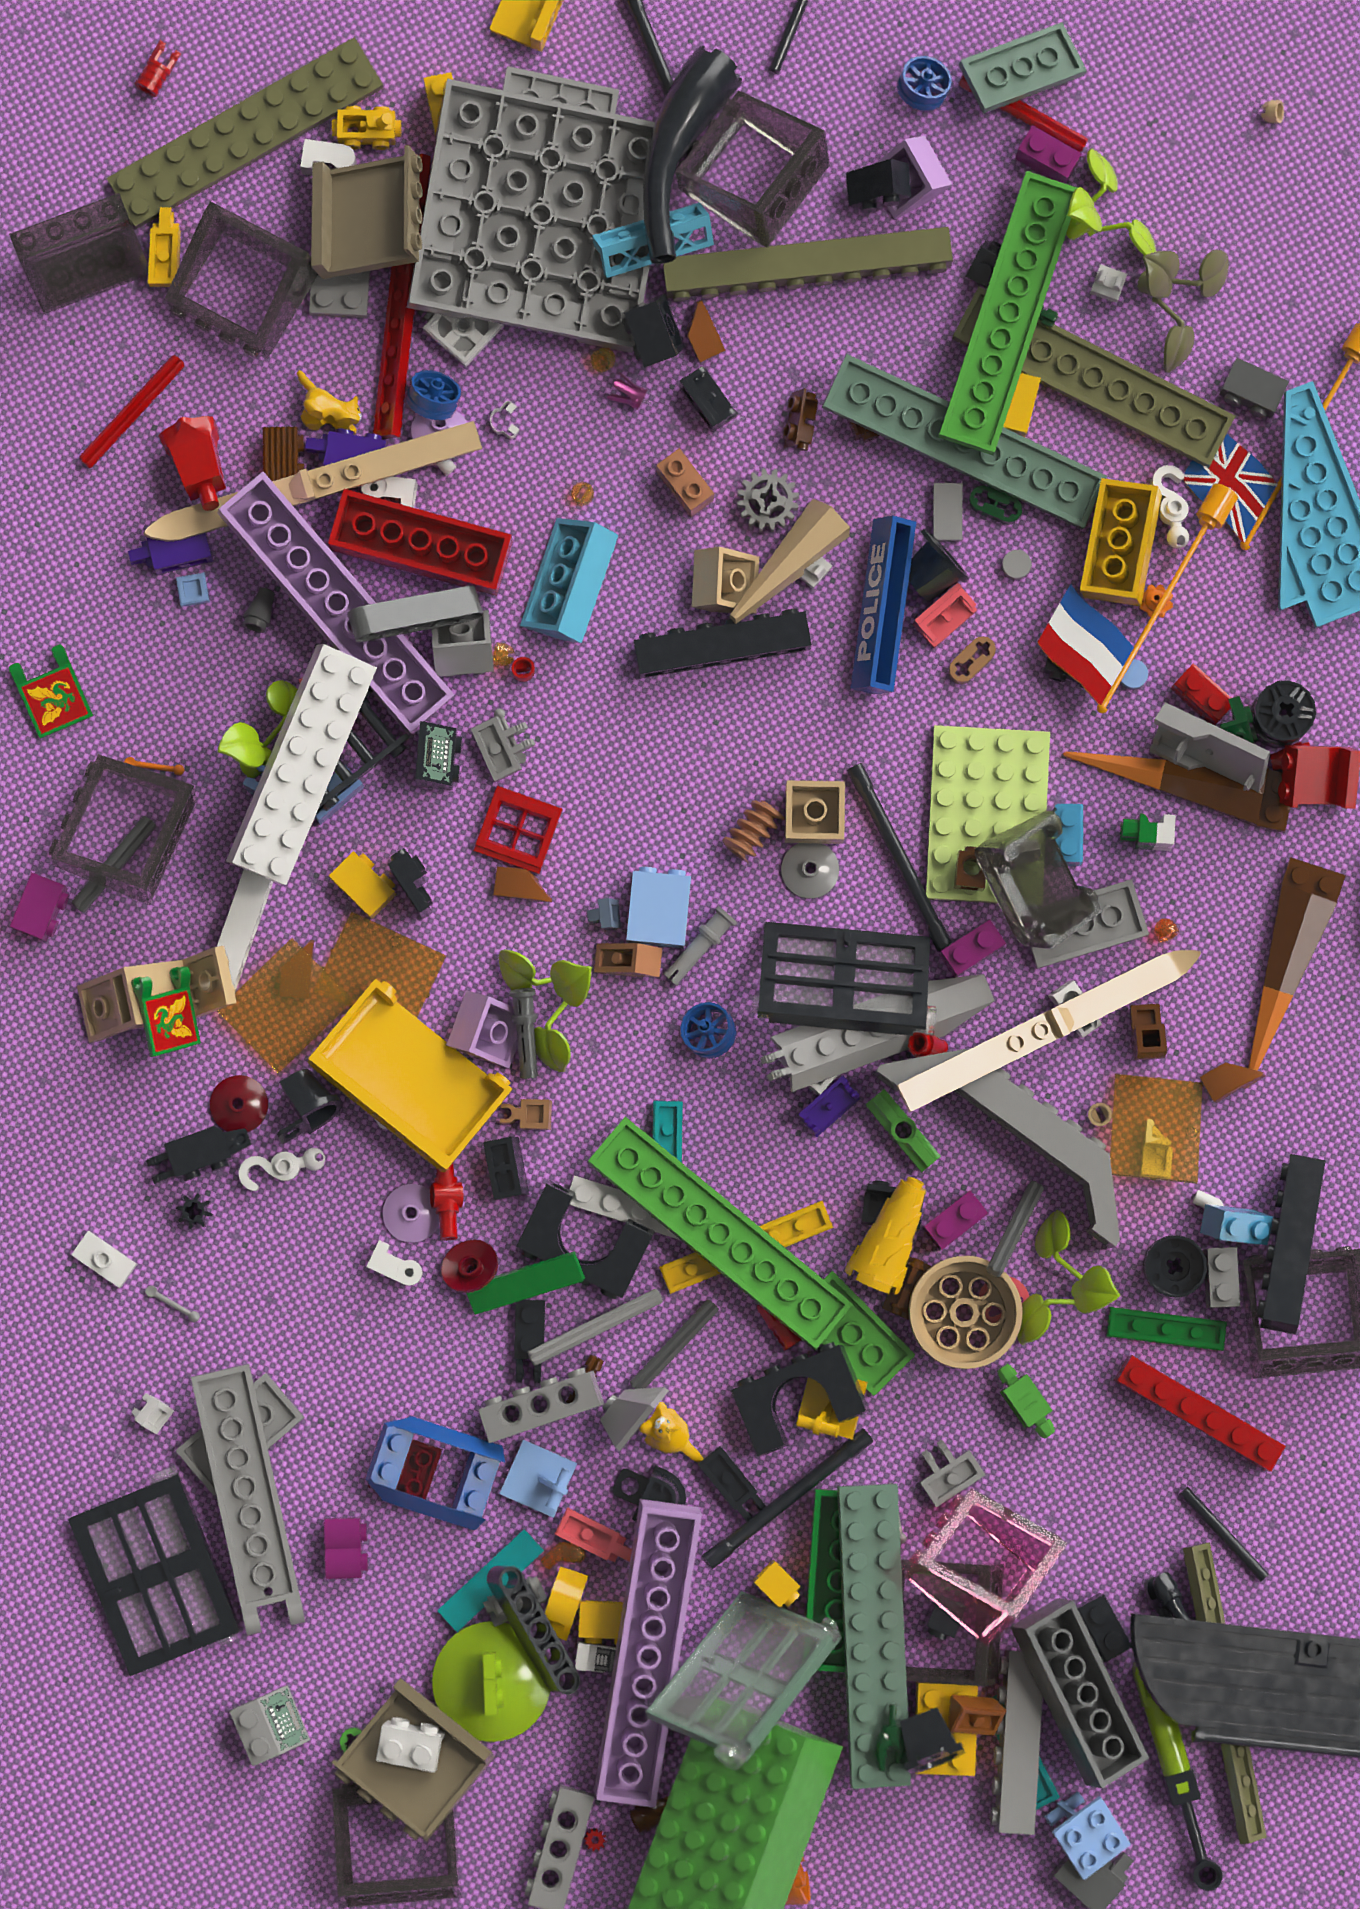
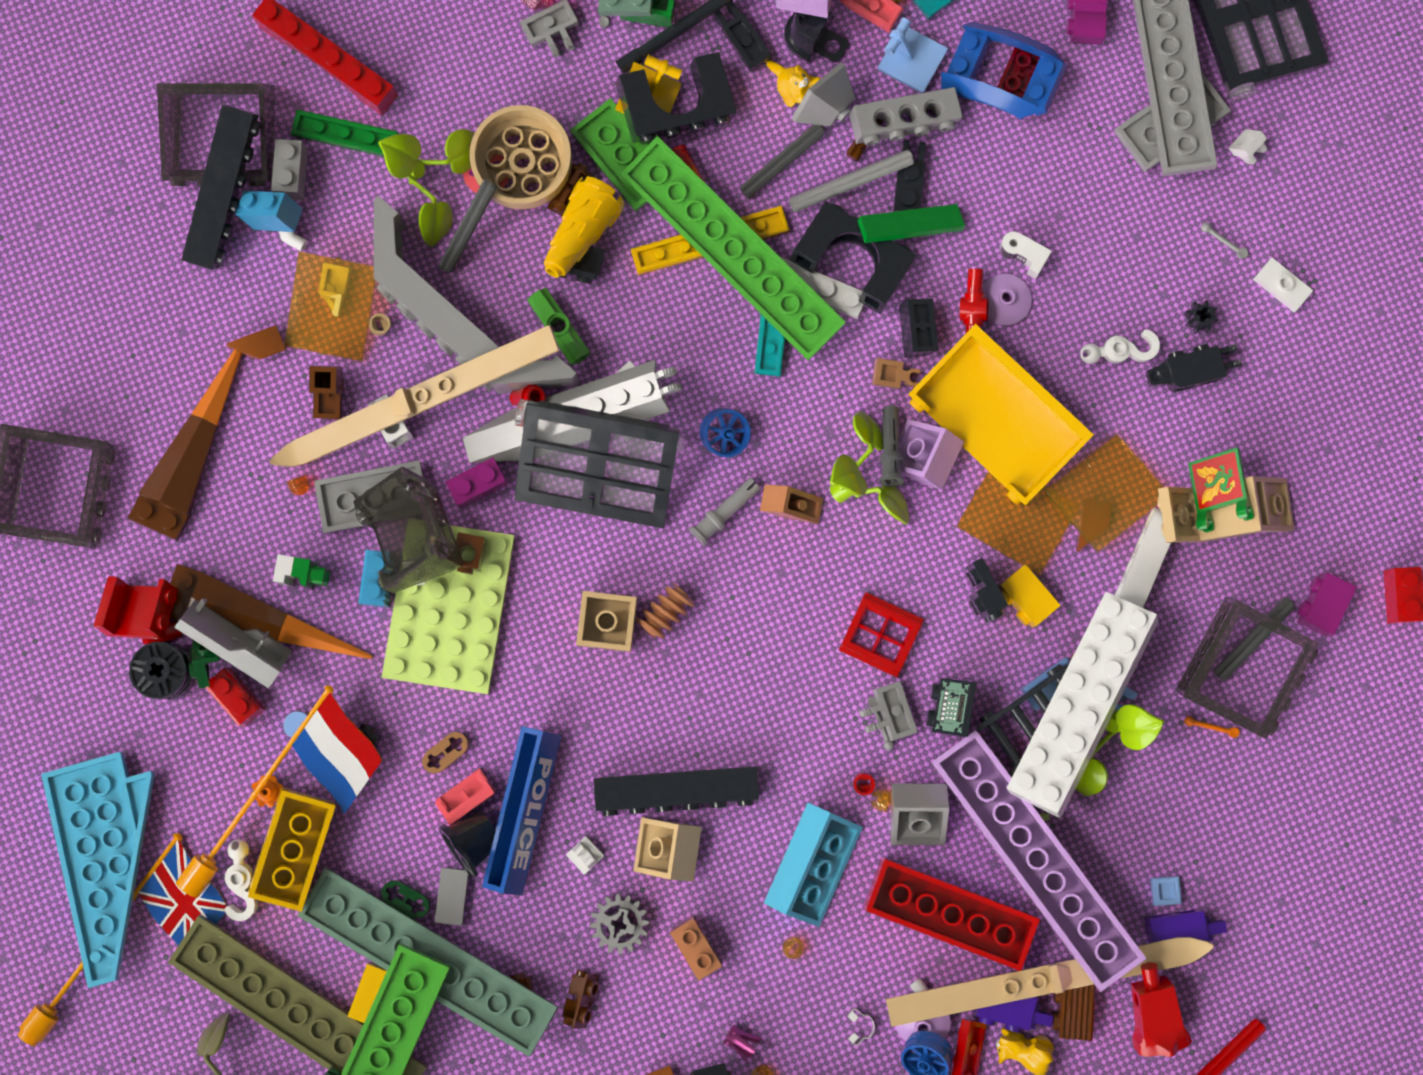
camera: 170 degrees left, 0 degrees up
(54, 697) = (1302, 800): flag -> none
(253, 1109) = (1142, 417): dark red dish -> none
(259, 612) = (1105, 863): dark grey cone -> none
(310, 1102) = (1093, 401): black container -> none
(393, 489) = (970, 967): white leg -> none
(415, 613) = (964, 841): beam -> none
(464, 1258) = (965, 252): dark red dish -> none
(519, 884) = (884, 582): dark orange slope -> none
(606, 914) = (807, 548): sand blue tile -> none
(658, 908) = (759, 548): light blue panel -> none
(707, 399) = (665, 1028): black hinge -> none
(804, 883) = (627, 561): light grey dish -> none
(809, 539) = (587, 878): tan wedge -> none
(829, 1106) = (630, 349): dark purple hinge -> none
(933, 924) = (558, 641): black piece -> none
(955, 1220) = (520, 242): magenta brick -> none
(1016, 564) = (393, 839): light grey tile -> none
(1025, 1401) = (476, 81): bright green piece -> none
(1191, 1260) = (325, 167): black wheel -> none
(1253, 389) = (147, 987): dark grey brick -> none

